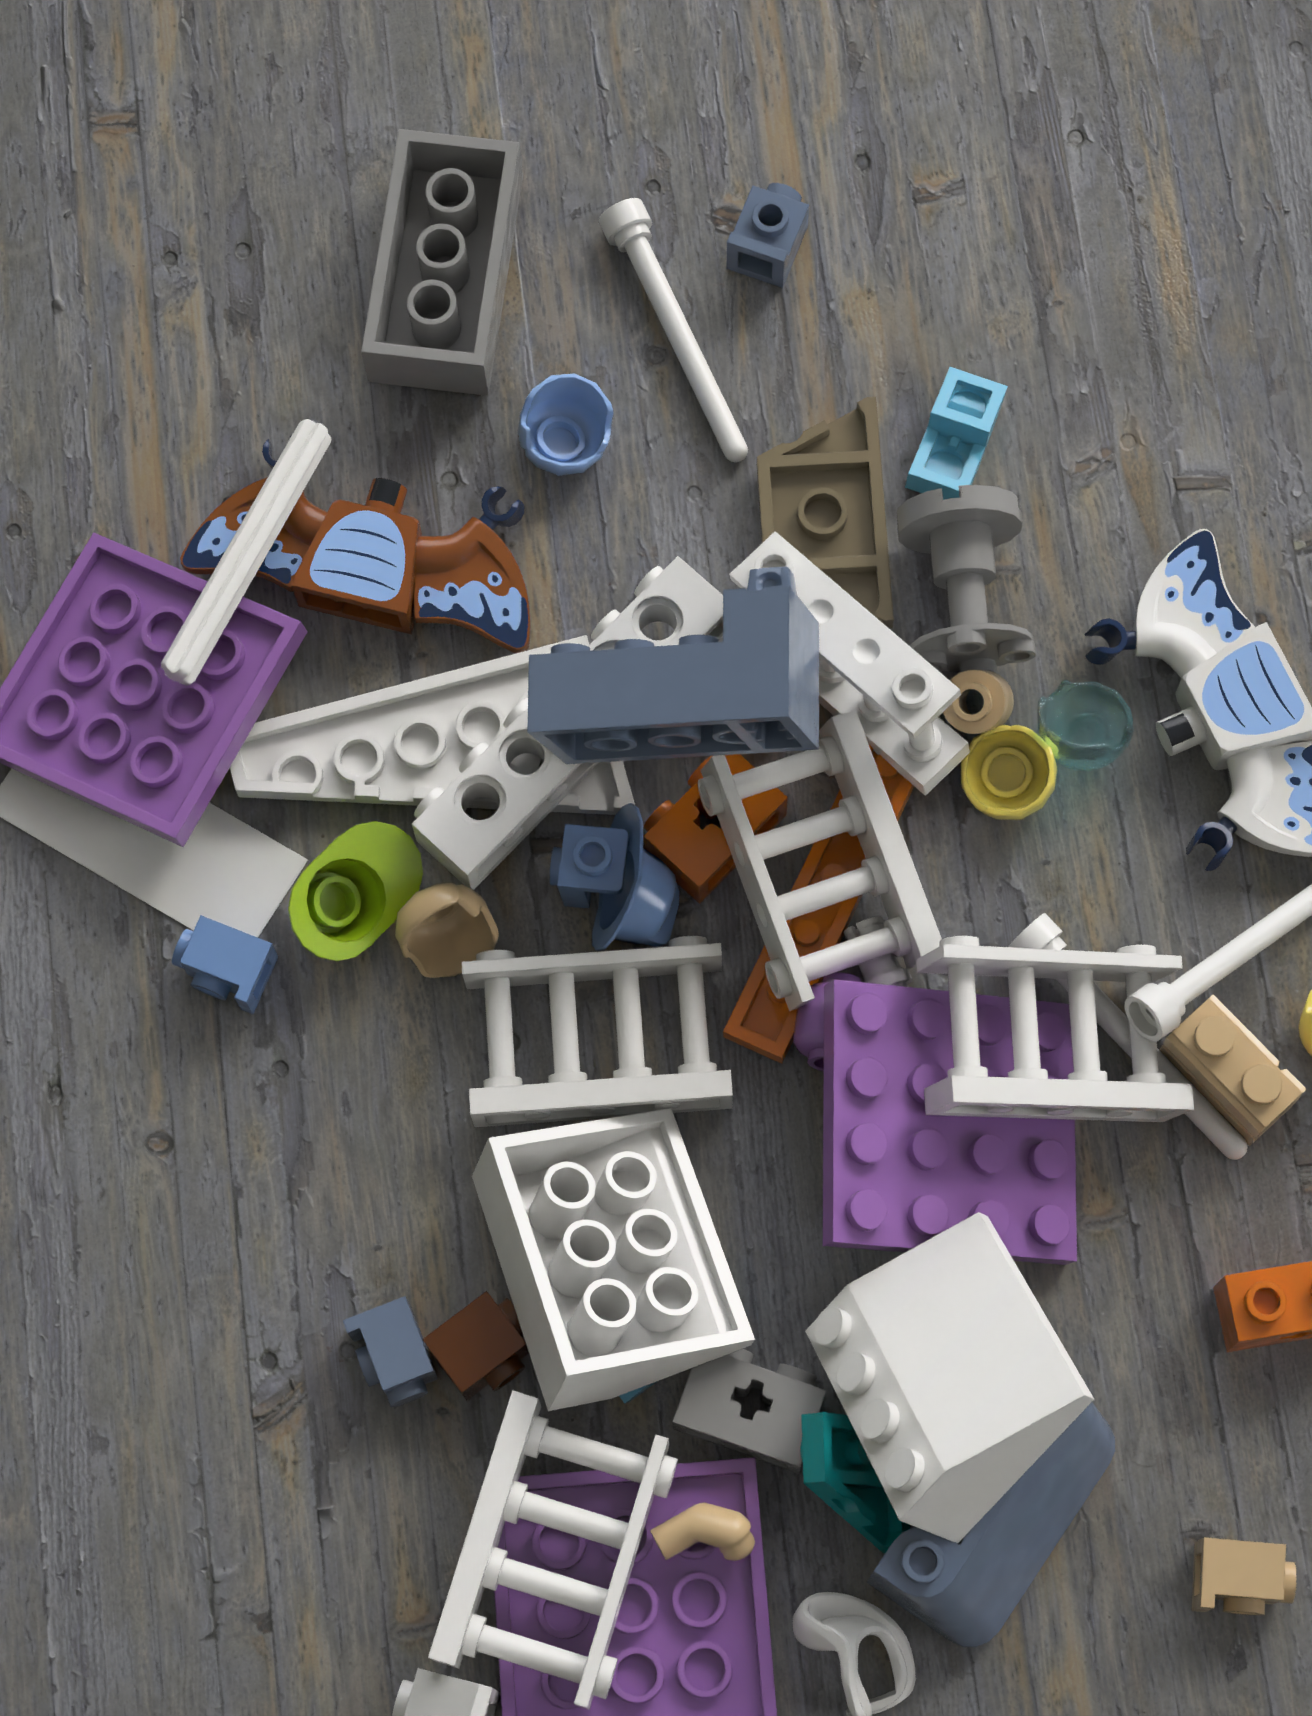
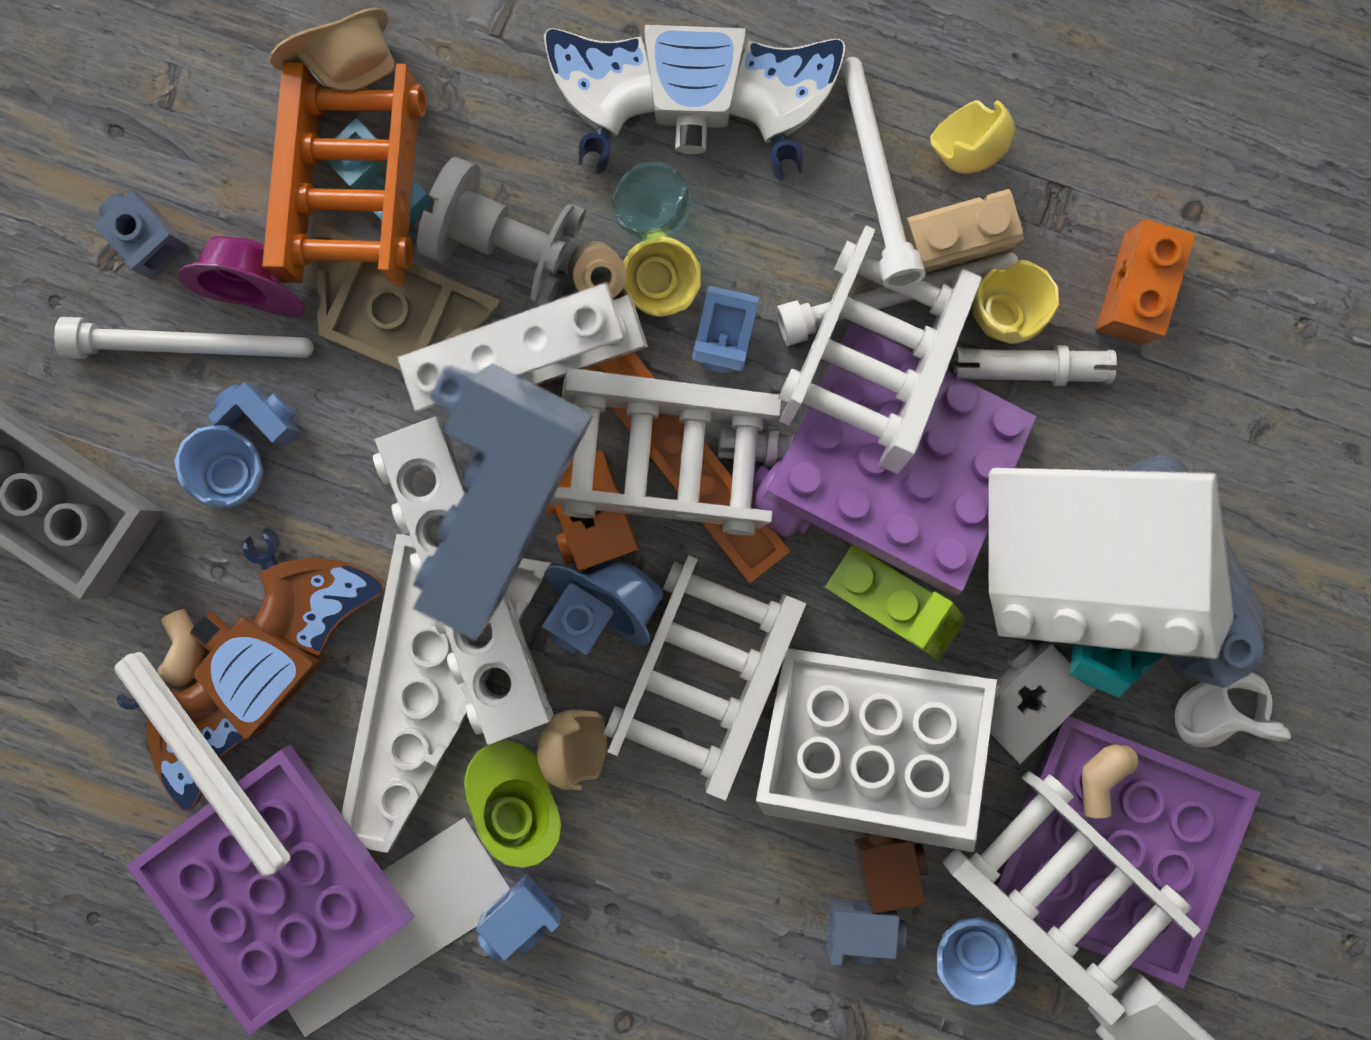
camera: 65 degrees left, 15 degrees up
(349, 483) = (184, 652): none -> tan arm
(423, 1493) = (977, 961): none -> light blue hair
(647, 446) = (267, 412): none -> medium blue bracket
(778, 349) = (233, 273): none -> magenta piece
(783, 1210) = (897, 602): none -> lime bracket
(942, 345) = (300, 148): none -> orange fence
(988, 870) = (725, 329): none -> medium blue bracket
(1063, 338) = (342, 53): none -> tan piece
(1133, 1231) = (1035, 365): none -> white pin
(1188, 1167) = (1015, 302): none -> light yellow hair
(1241, 1575) = (1308, 420): tan brick -> none

